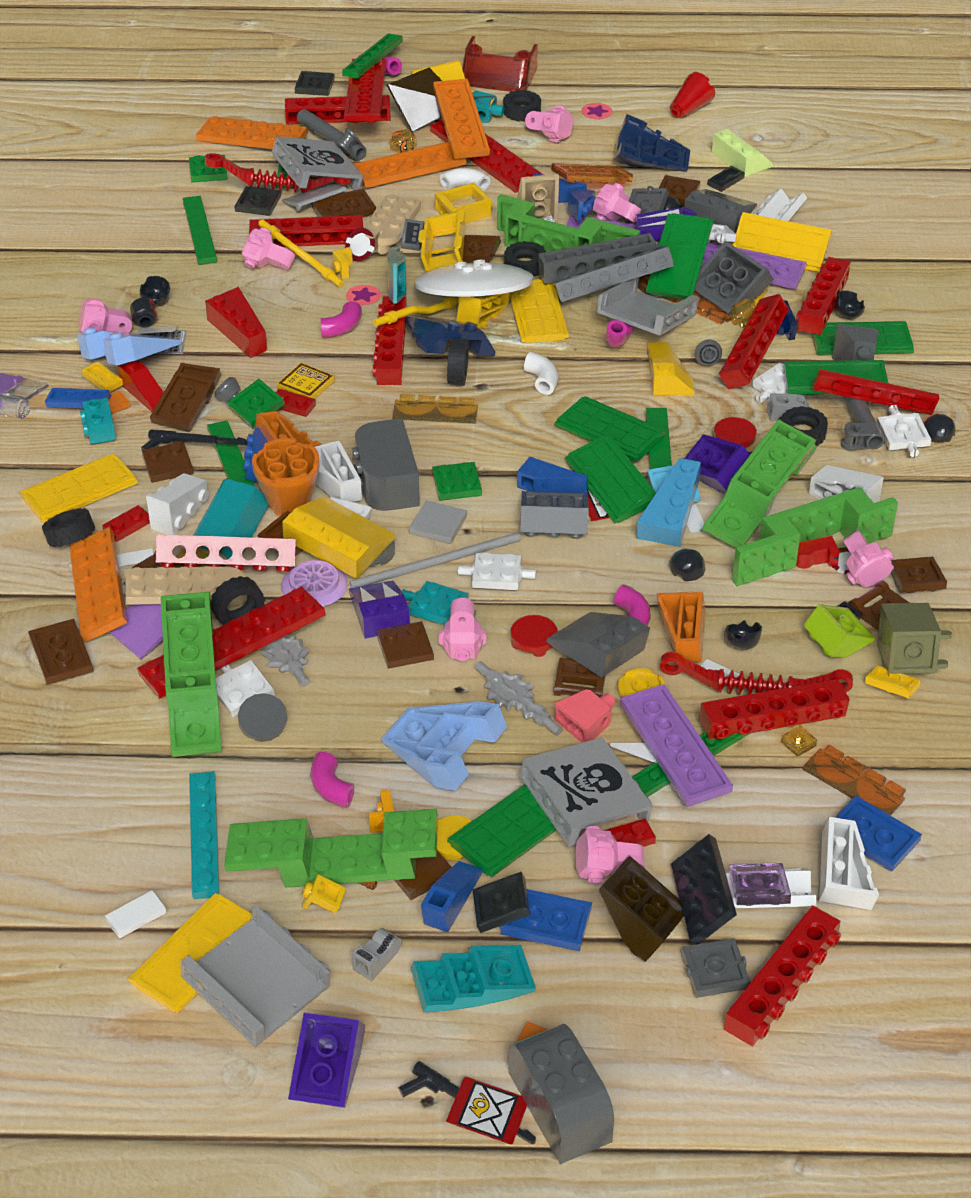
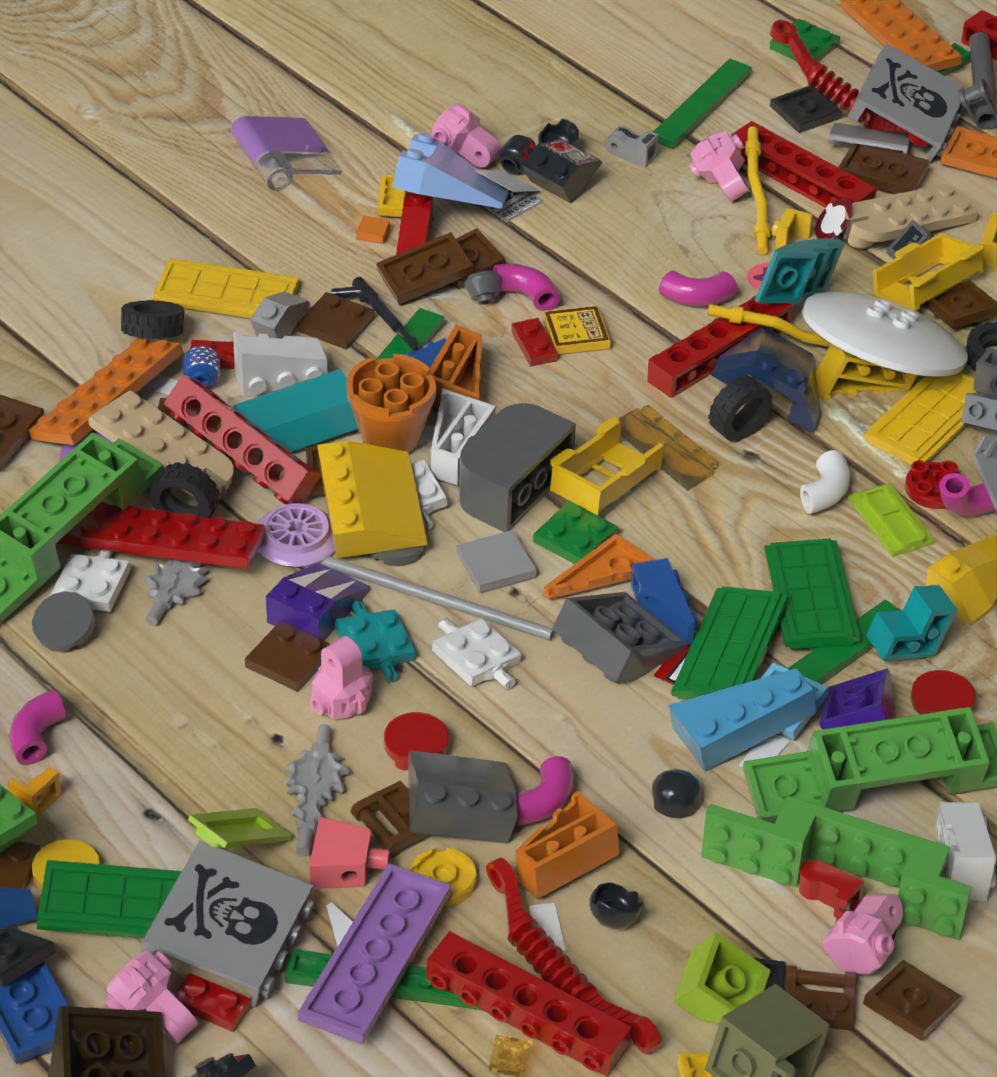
camera: 45 degrees right, 0 degrees up
(73, 397) = (340, 202): blue plate -> none
(97, 421) = (322, 235): teal brick -> none
(134, 534) = (202, 365): none -> blue head
(140, 478) = (278, 315): none -> light grey slope
(181, 305) = (560, 168): none -> black slope
(197, 272) = (633, 146): none -> light grey leg
(237, 321) = (595, 218): red wedge -> none
(250, 372) = (529, 282): none -> dark pink cylinder
(254, 400) = (492, 315): green plate -> none
(435, 454) = (571, 464): none -> yellow piece
(437, 736) = (182, 764): light blue wedge -> none
(497, 485) = (601, 567): none -> orange wing
(524, 742) = (237, 828): none -> lime piece
(586, 340) = (924, 480): none -> red tile
(590, 371) = (891, 519): none -> lime piece
(686, 406) = (915, 629): none -> teal brick

